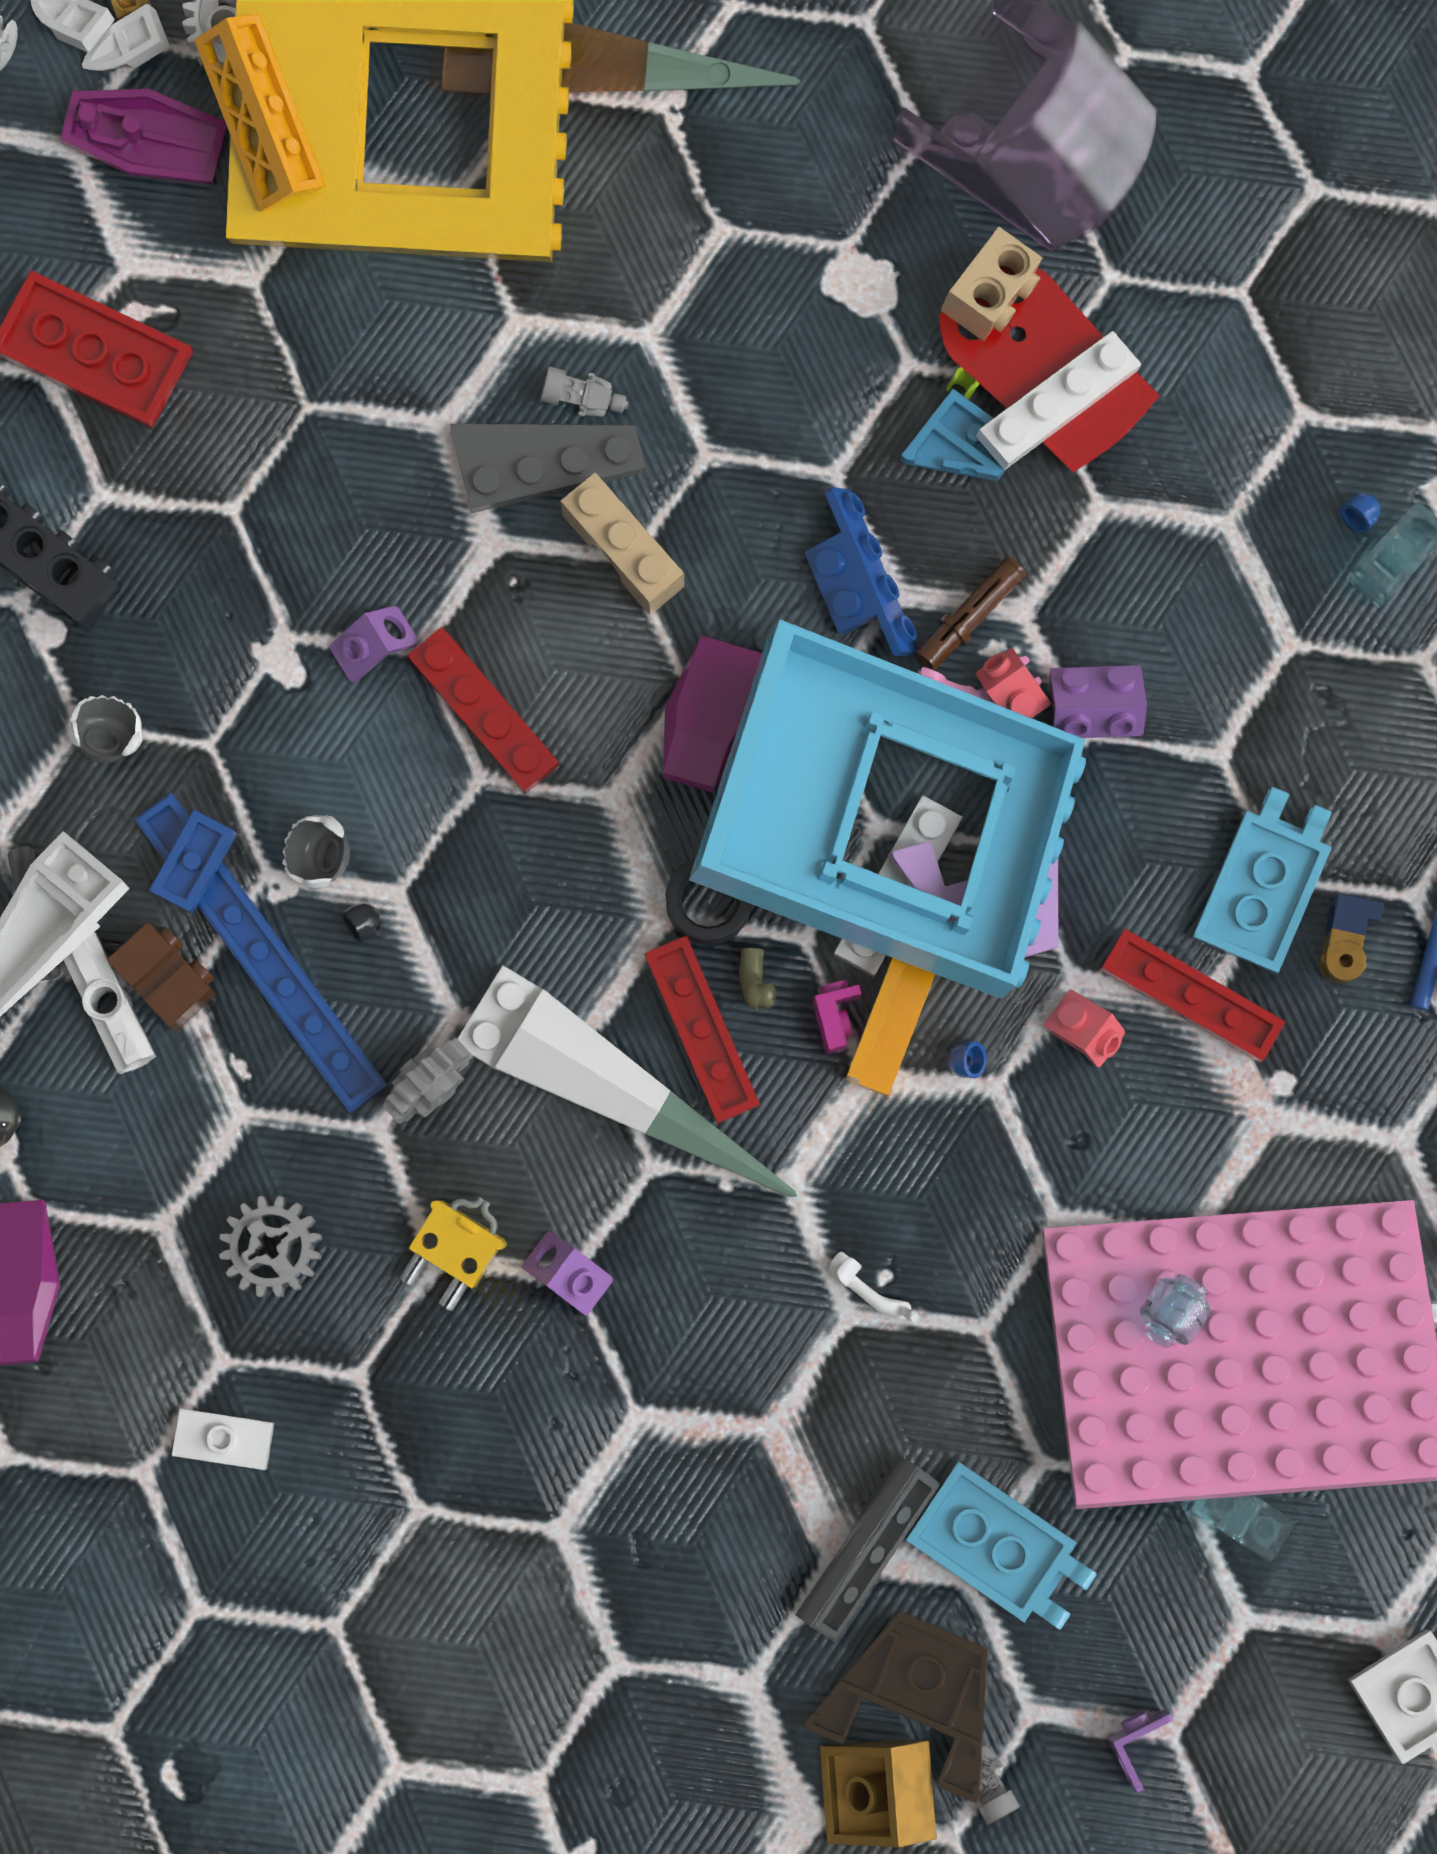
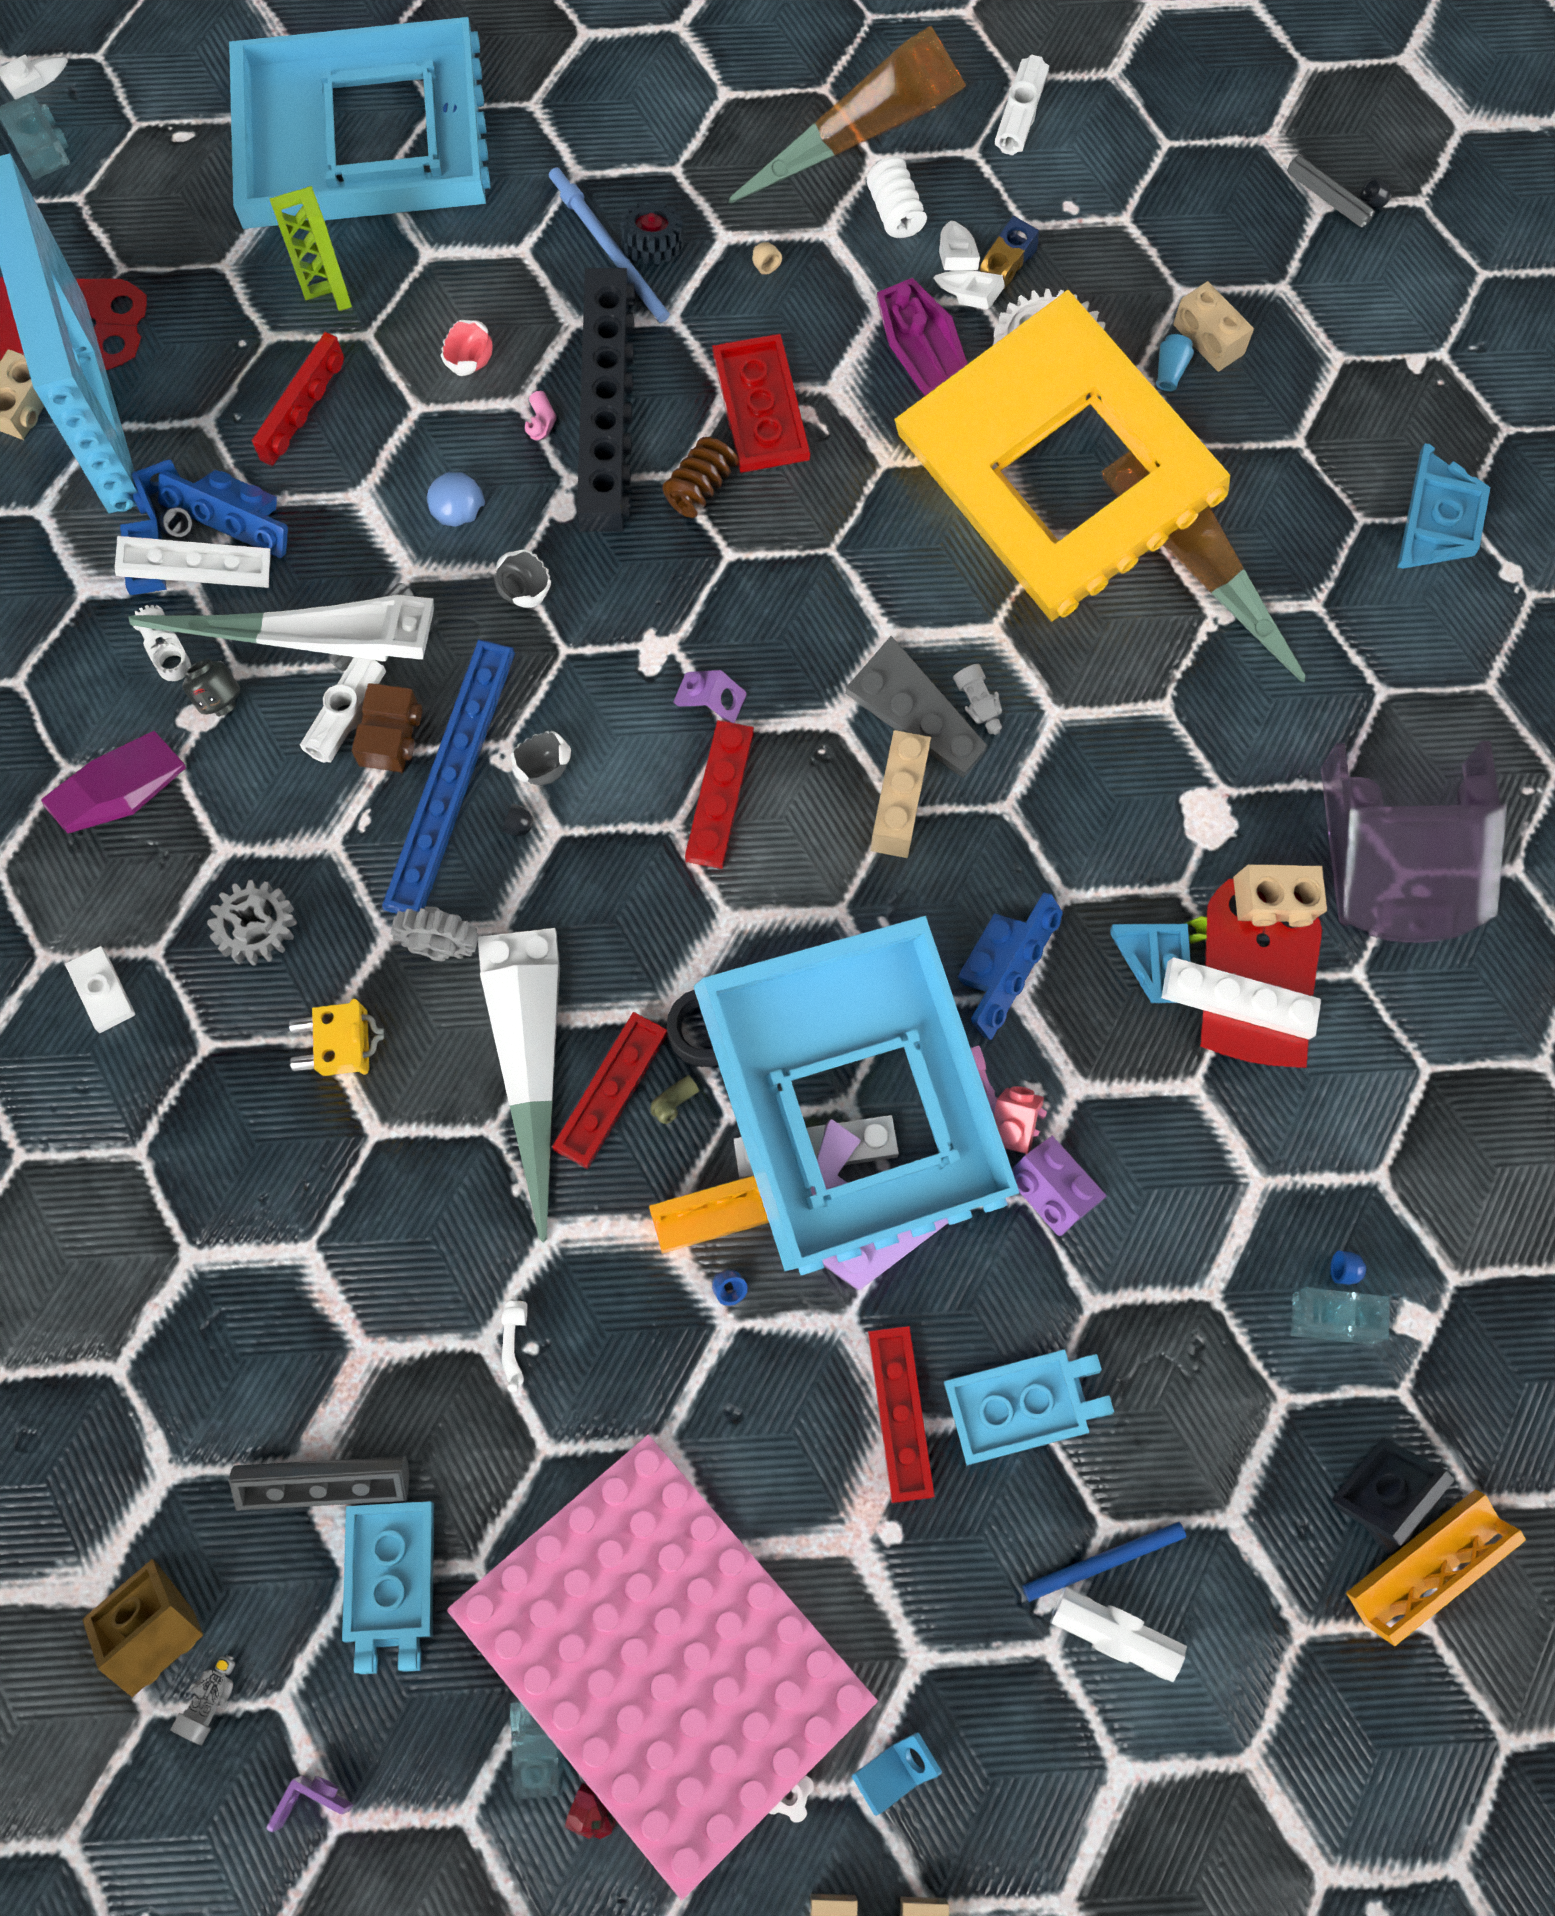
camera: 55 degrees right, 10 degrees down
(126, 473) = (698, 475): none -> reddish brown piece
(193, 862) = (474, 689): blue plate -> none
(264, 106) = (988, 371): light orange fence -> none
(569, 1274) = (372, 1128): medium lavender bracket -> none
(706, 712) = (828, 922): magenta piece -> none
(834, 1024) = (682, 1172): dark pink bracket -> none
(923, 1677) = (251, 1598): dark brown wing -> none
(956, 628) = (1044, 1052): reddish brown pin -> none
(1086, 1027) = (817, 1355): coral bracket -> none
(1175, 1311) = (649, 1573): clear light blue head -> none
(1324, 1509) = (589, 1815): none -> dark red rock
(1344, 937) = (1016, 1503): leg -> none

